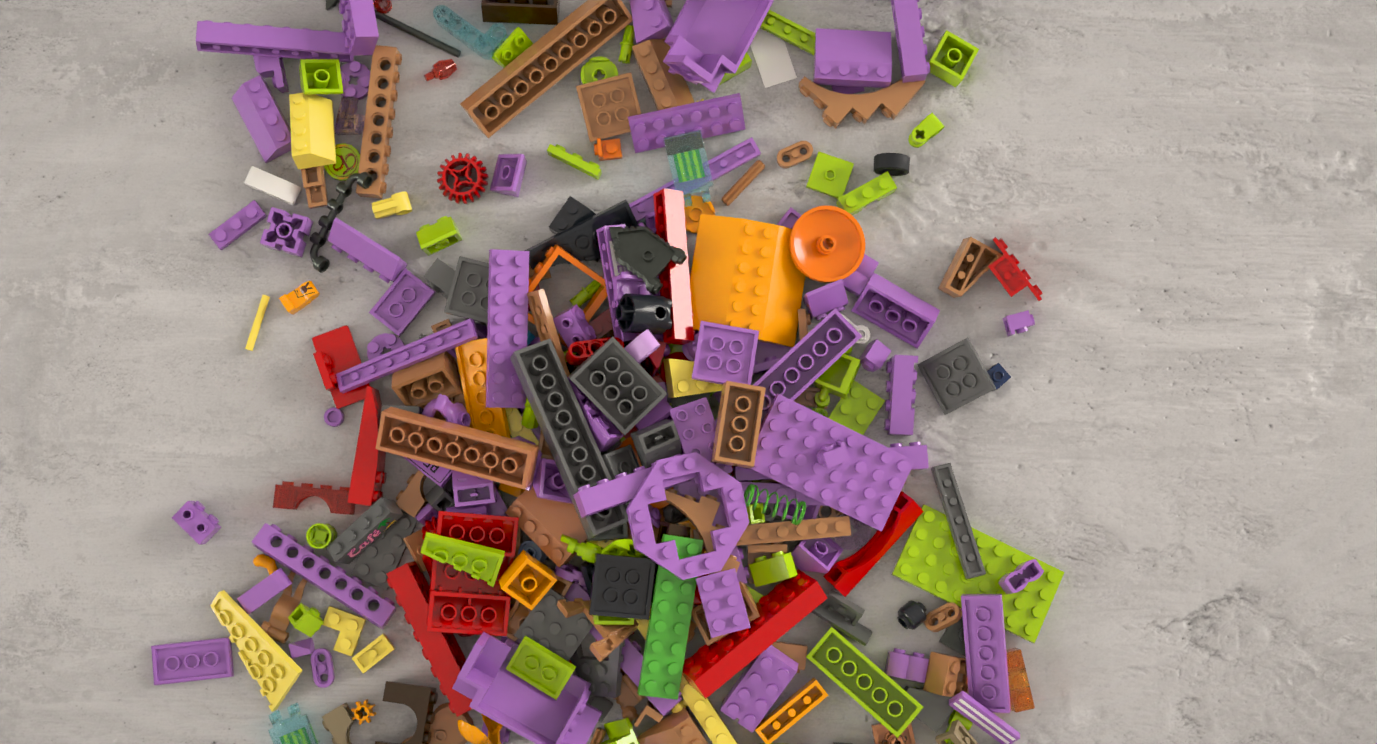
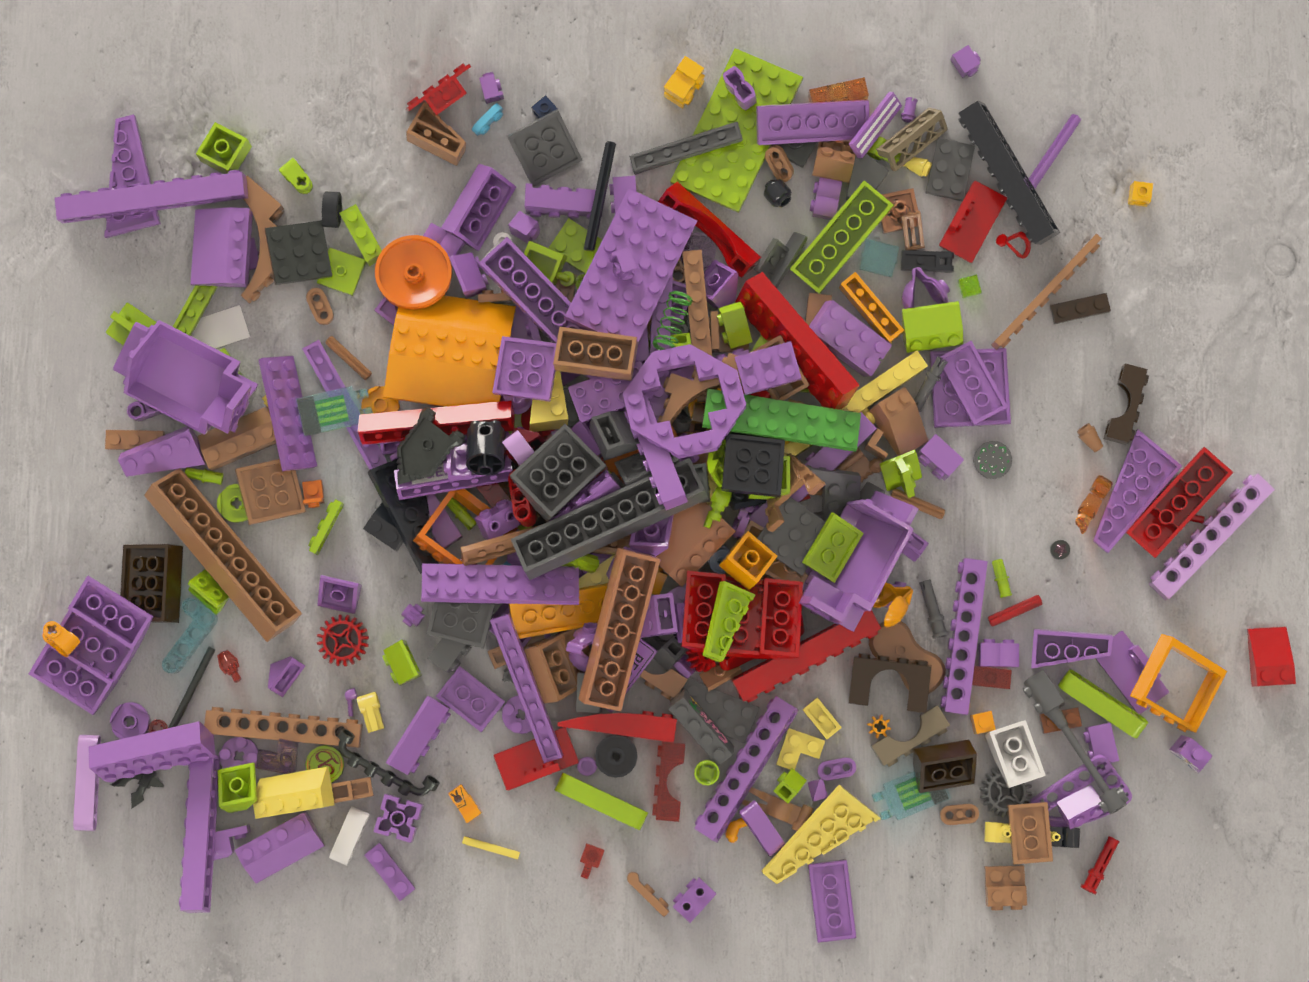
camera: 90 degrees left, 0 degrees up
(206, 475) = (647, 892): none -> medium nougat plate
(242, 420) = (591, 857): none -> clear red plate
(297, 430) = (601, 801): none -> lime beam
(329, 443) = (605, 760): none -> black wheel
(409, 185) = (349, 695): none -> medium lavender hand
(430, 121) = (283, 674): none -> medium lavender slope
(484, 245) = (413, 615): none -> medium lavender gear
(570, 277) = (443, 528): none -> medium lavender slope
(845, 720) = (879, 258): none -> clear light blue piece
(847, 131) = (298, 252): none -> pearl dark grey plate
(905, 431) = (600, 195): none -> black axle
(991, 326) = (483, 124): none -> medium azure plate
(1026, 518) = (683, 82): none -> yellow brick

